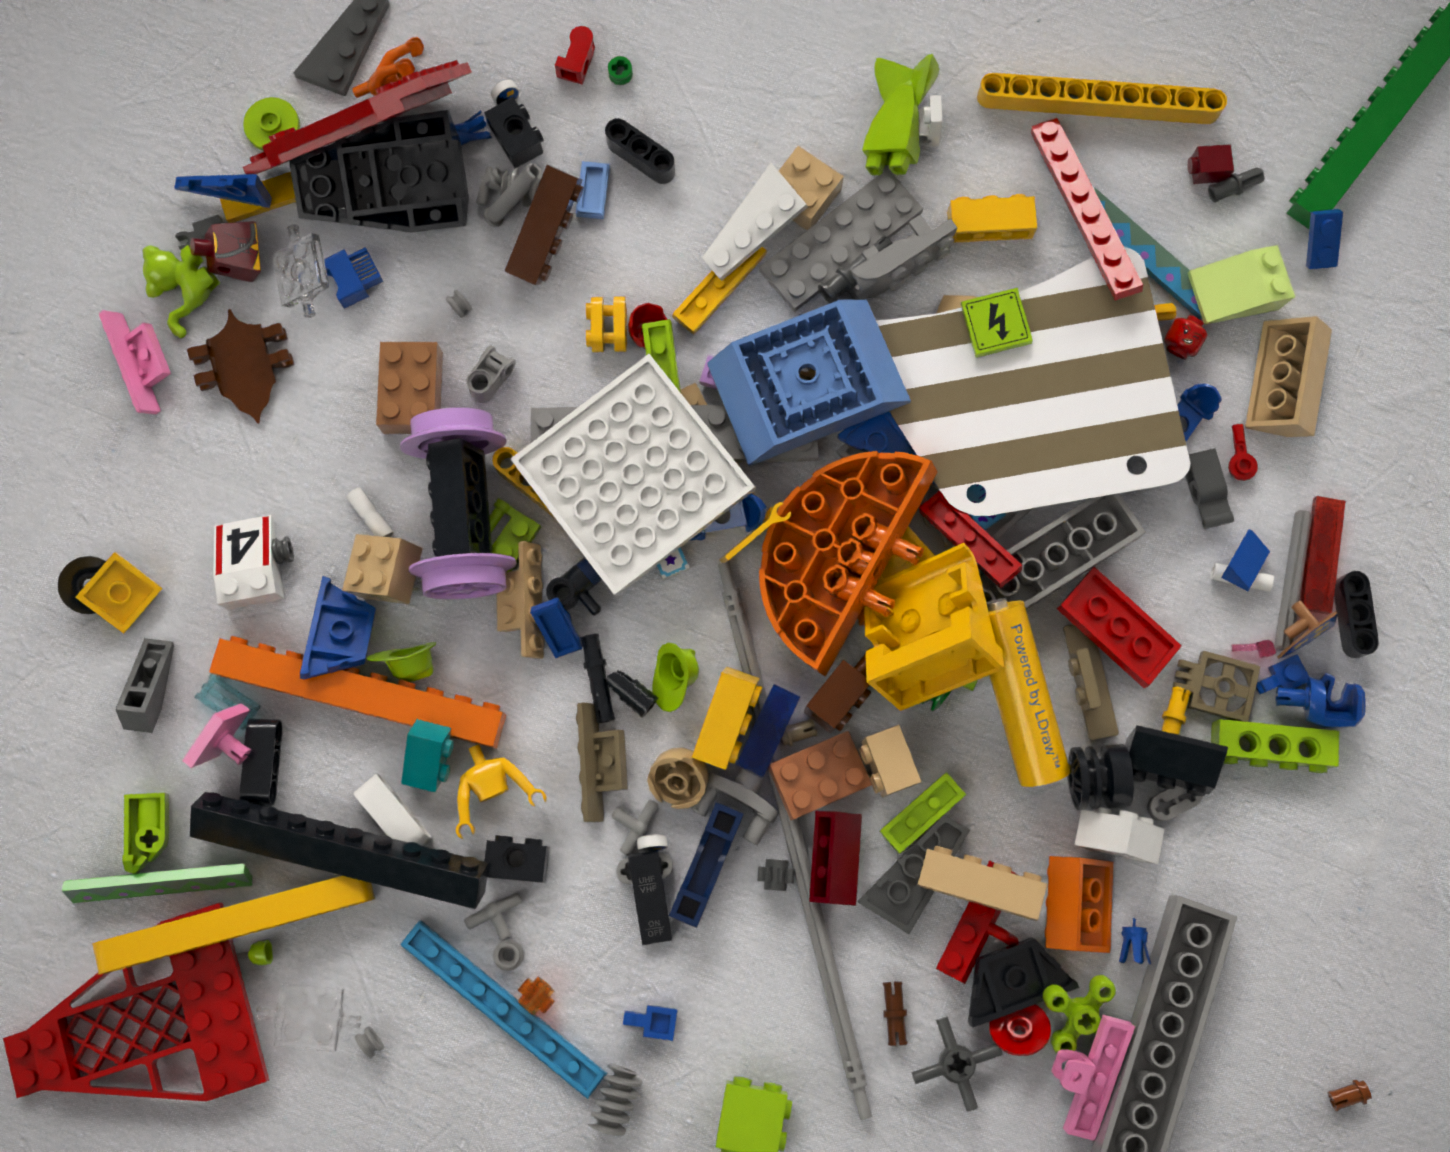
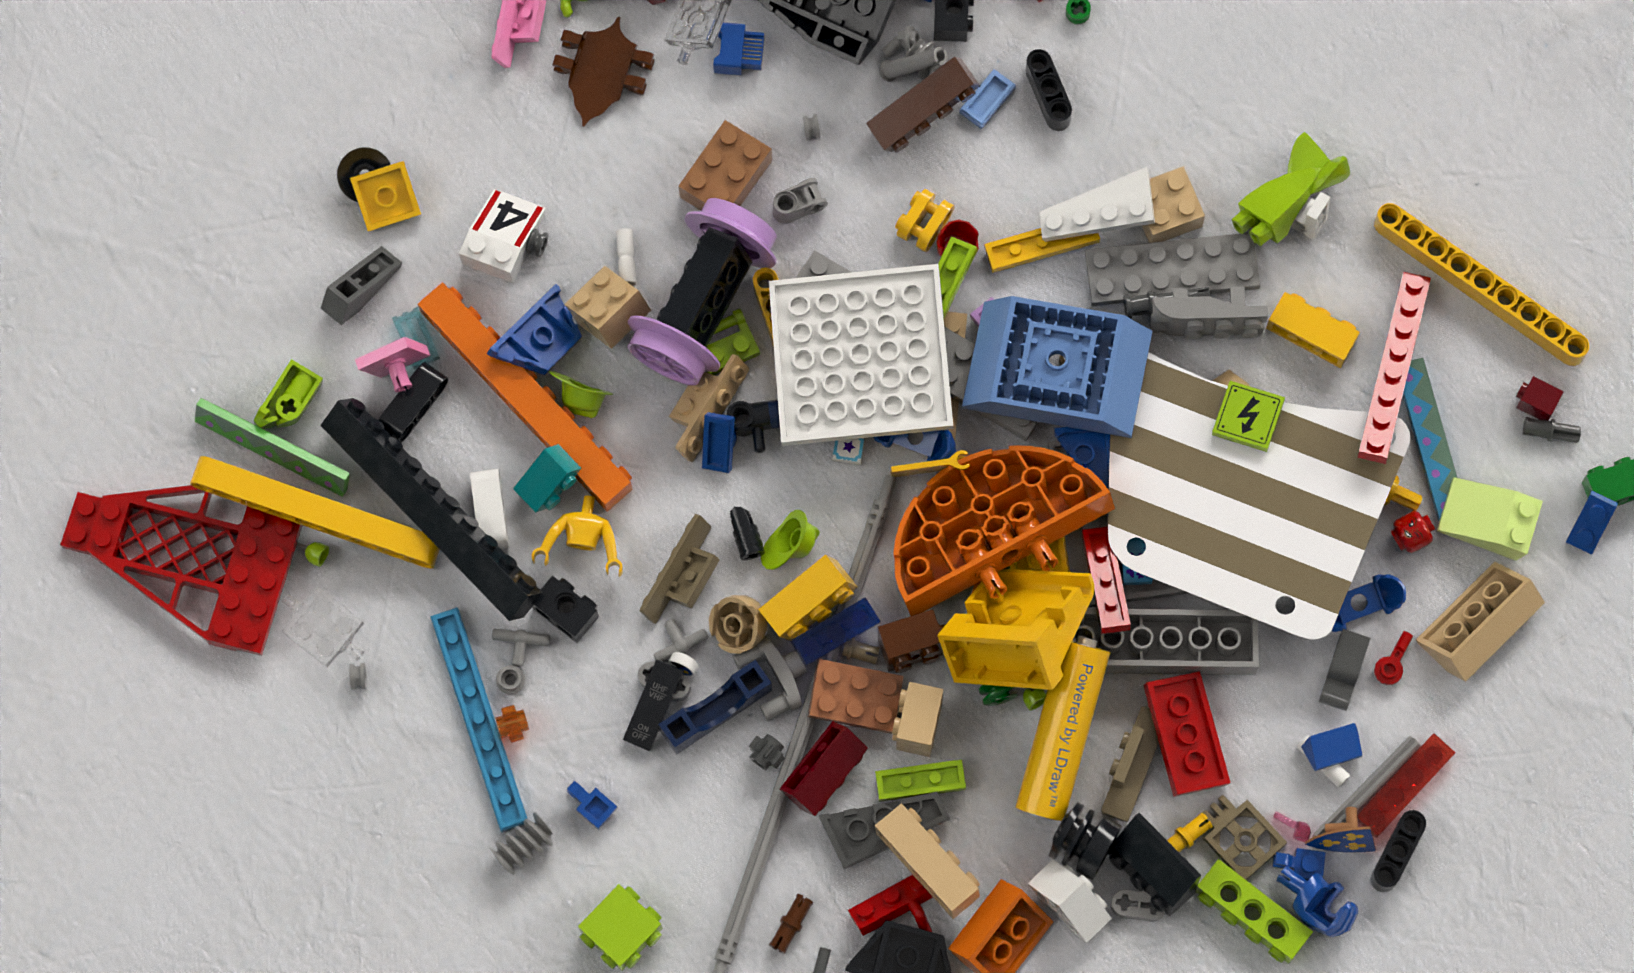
camera: 35 degrees right, 5 degrees down
(597, 677) = (729, 495): black pin -> none

